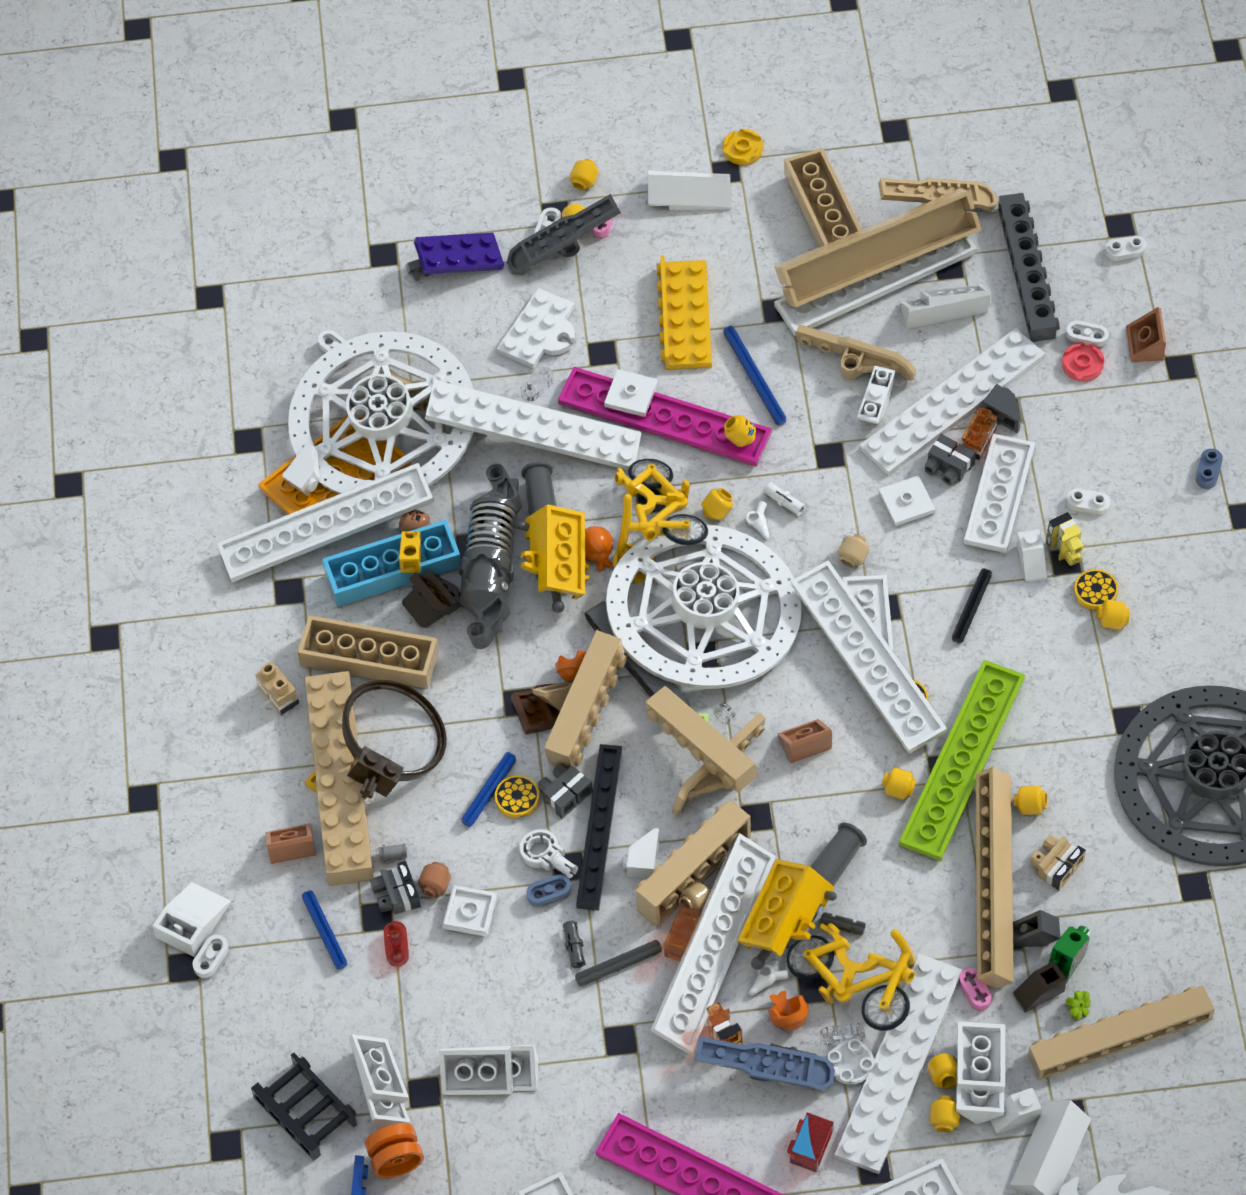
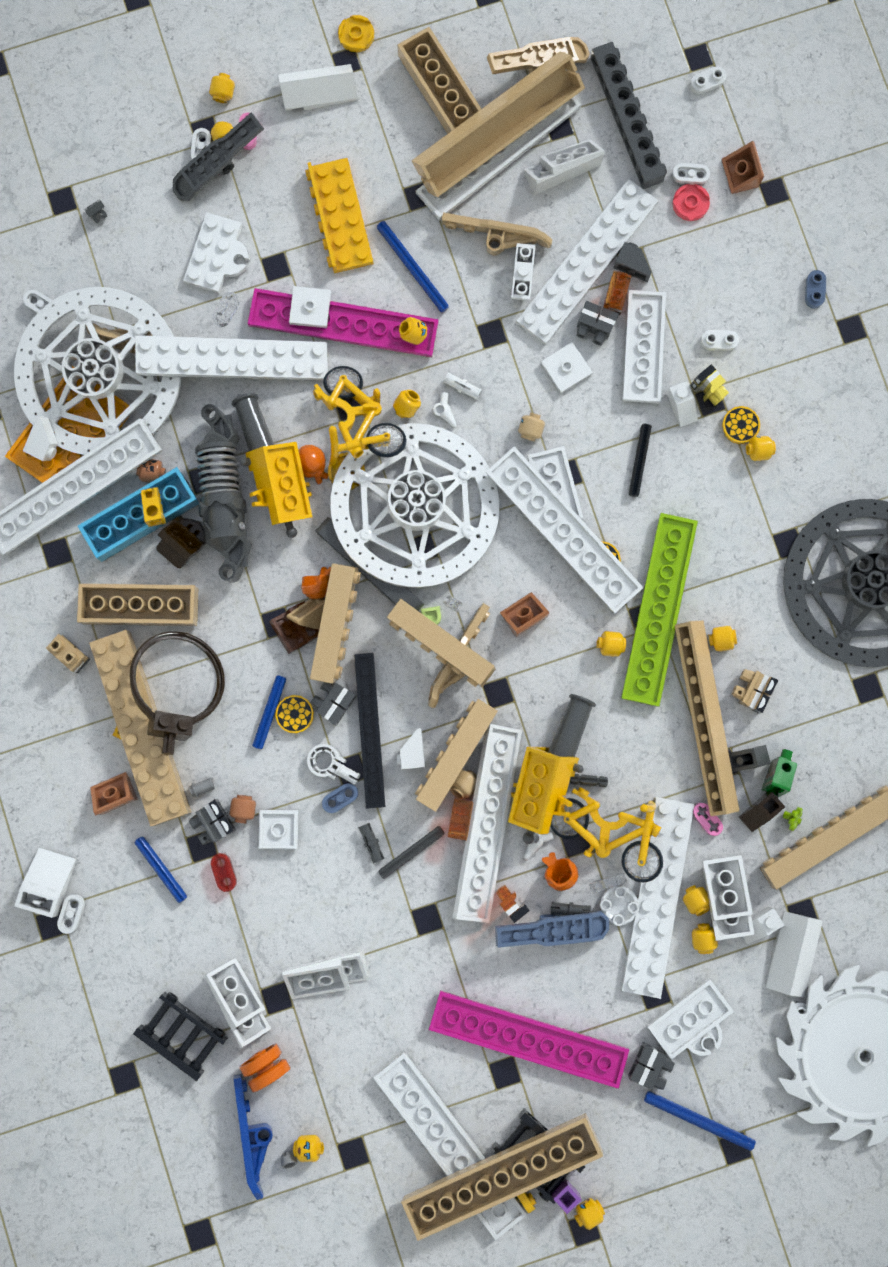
camera: 15 degrees left, 25 degrees up
(458, 253) = (128, 191): dark purple plate -> none
(810, 1142) = (601, 985): clear red brick -> none

